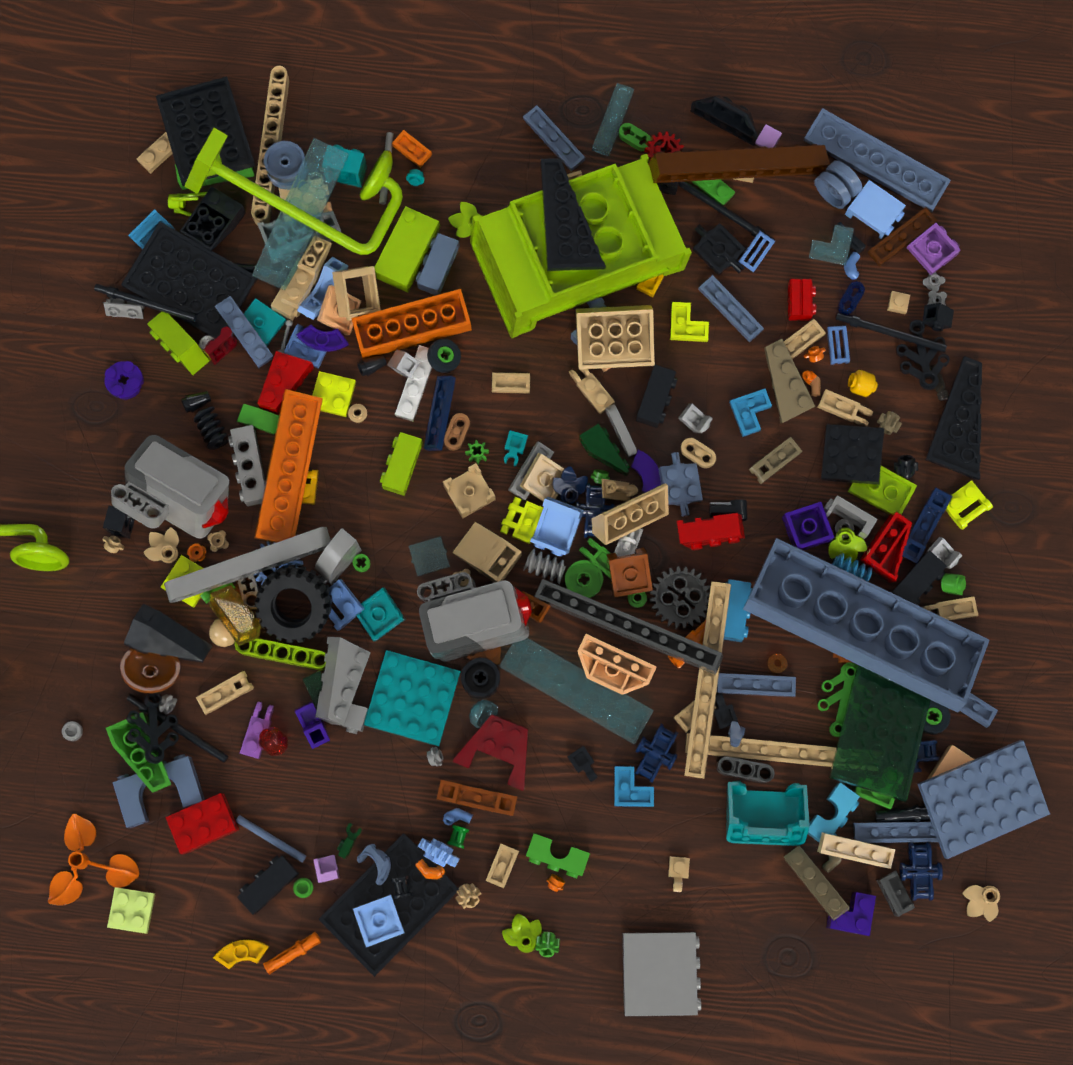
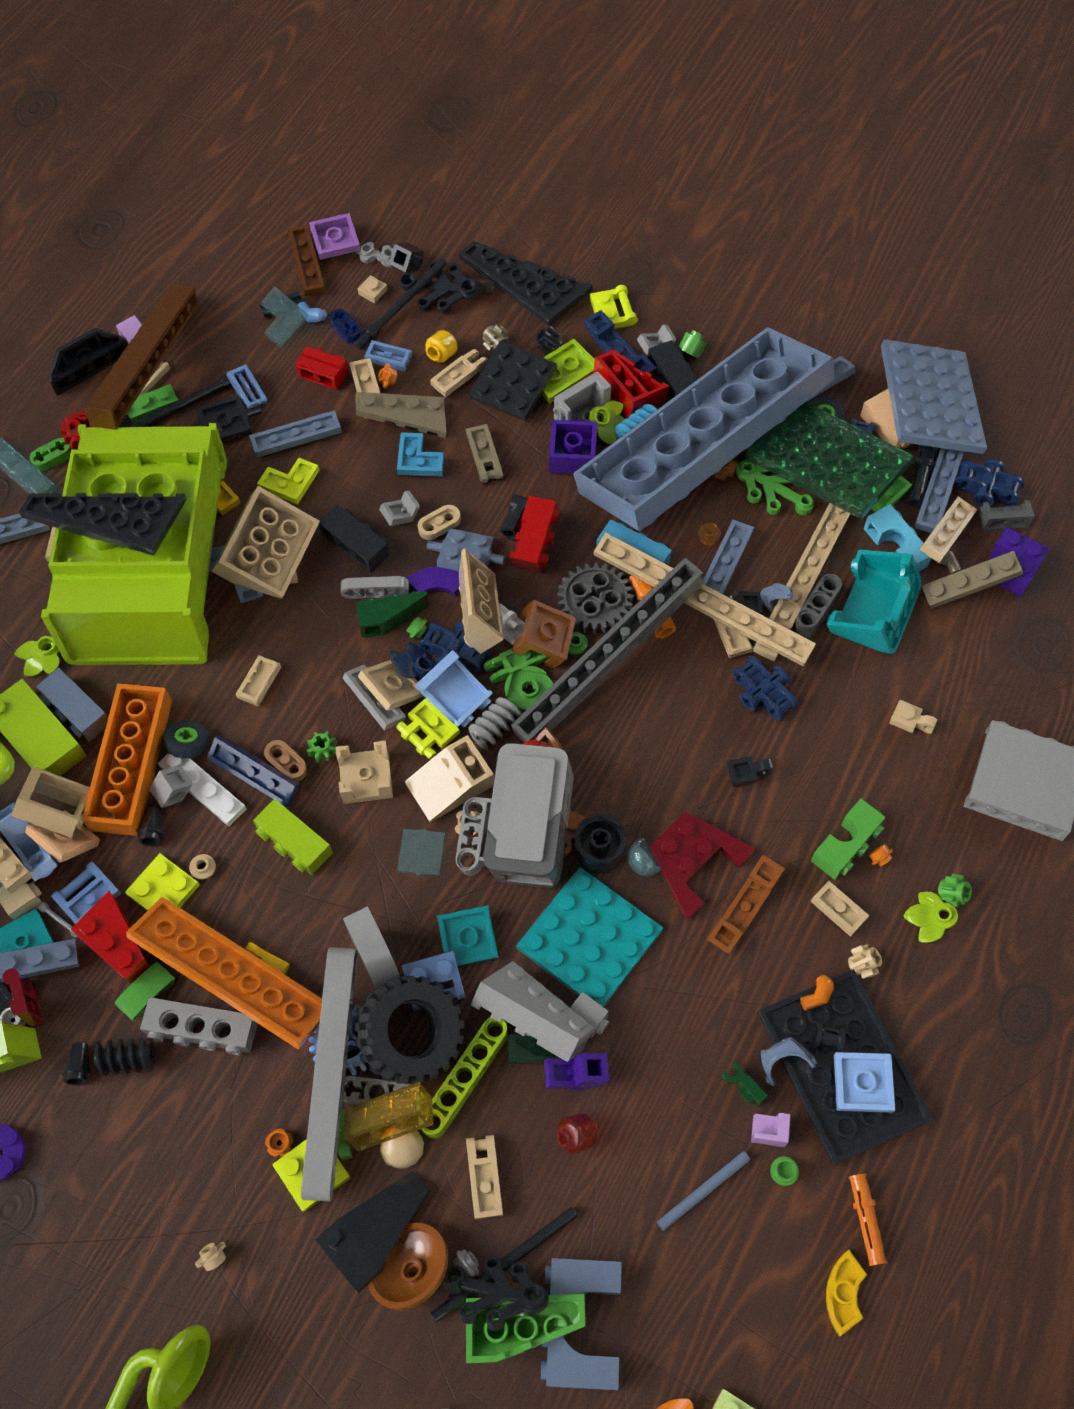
camera: 65 degrees left, 15 degrees down
(118, 523) = (185, 1230): black brick -> none
(161, 544) = (245, 1188): tan plate -> none
(172, 487) = (178, 1129): light grey piece -> none
(202, 823) = (651, 1276): red brick -> none
(214, 537) = (271, 1102): tan plate -> none
(256, 725) = (548, 1151): medium lavender hinge -> none
(267, 884) = (765, 1216): black brick -> none
(322, 340) = (88, 870): dark purple tile -> none
(355, 563) = (396, 928): bright green bush -> none
(435, 757) = (675, 936): light grey plate -> none
(438, 852) = (800, 973): light blue gear -> none
(456, 814) = (756, 939): medium blue arm -> none
(458, 836) = (791, 952): green bush -> none
(515, 444) = (335, 702): teal plate -> none
(571, 687) = (655, 745): clear light blue plate -> none
(592, 390) = (310, 601): tan hinge -> none
(613, 667) = (647, 690): light nougat wedge -> none
(618, 490) = (442, 612): tan hinge -> none
(626, 793) = (799, 737): dark azure plate -> none
(814, 381) = (417, 389): arm -> none
(838, 184) = (220, 286): sand blue wheel -> none
(876, 209) = (264, 268): light blue panel -> none
(877, 160) = (214, 251): sand blue plate -> none
(955, 609) = (719, 350): tan hinge -> none
(979, 903) = (1038, 442): tan plate -> none

